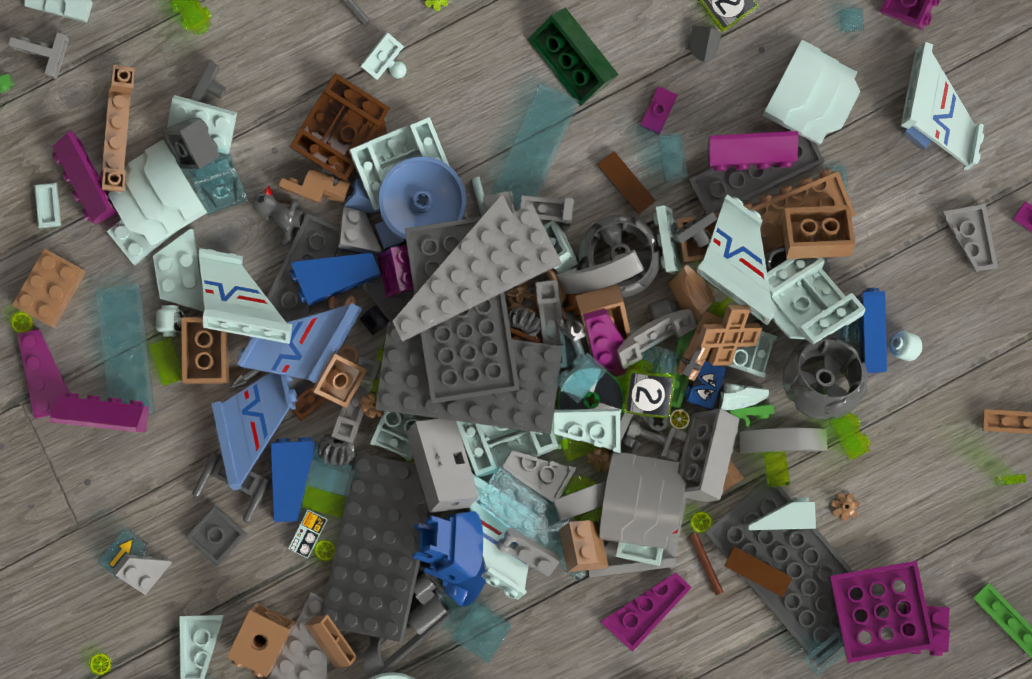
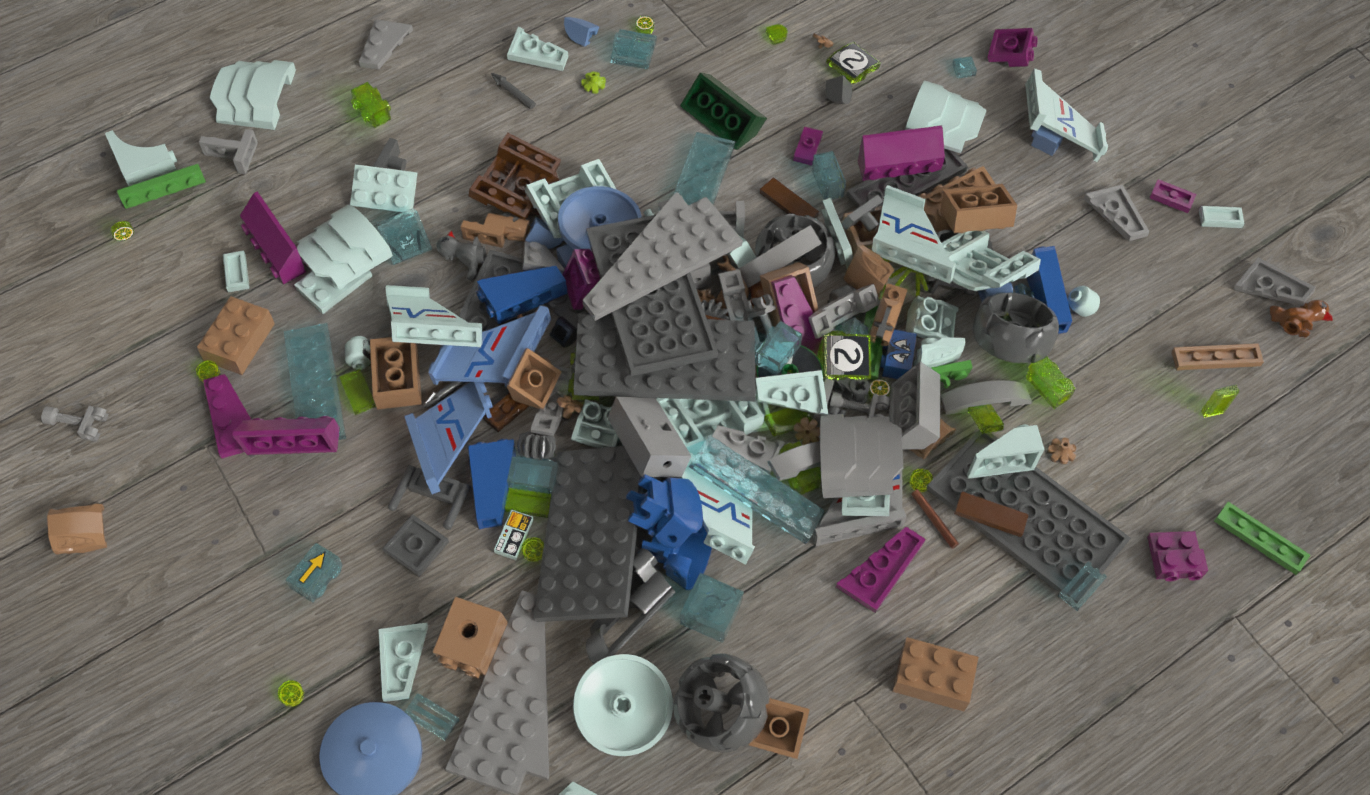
camera: 10 degrees left, 25 degrees down
(116, 128) = (303, 191): medium nougat slope -> none
(141, 571) = (334, 586): light grey wing -> none
(179, 272) = (367, 311): light aqua wing -> none
(191, 143) = (374, 197): dark grey slope -> none
(331, 641) = (548, 632): medium nougat piece -> none
(382, 57) = (550, 126): light aqua plate -> none
(529, 551) = (751, 512): light grey plate -> none
(582, 546) = (805, 501): medium nougat slope -> none
(729, 335) = (915, 294): medium nougat plate -> none
(912, 595) = (1125, 547): magenta piece -> none

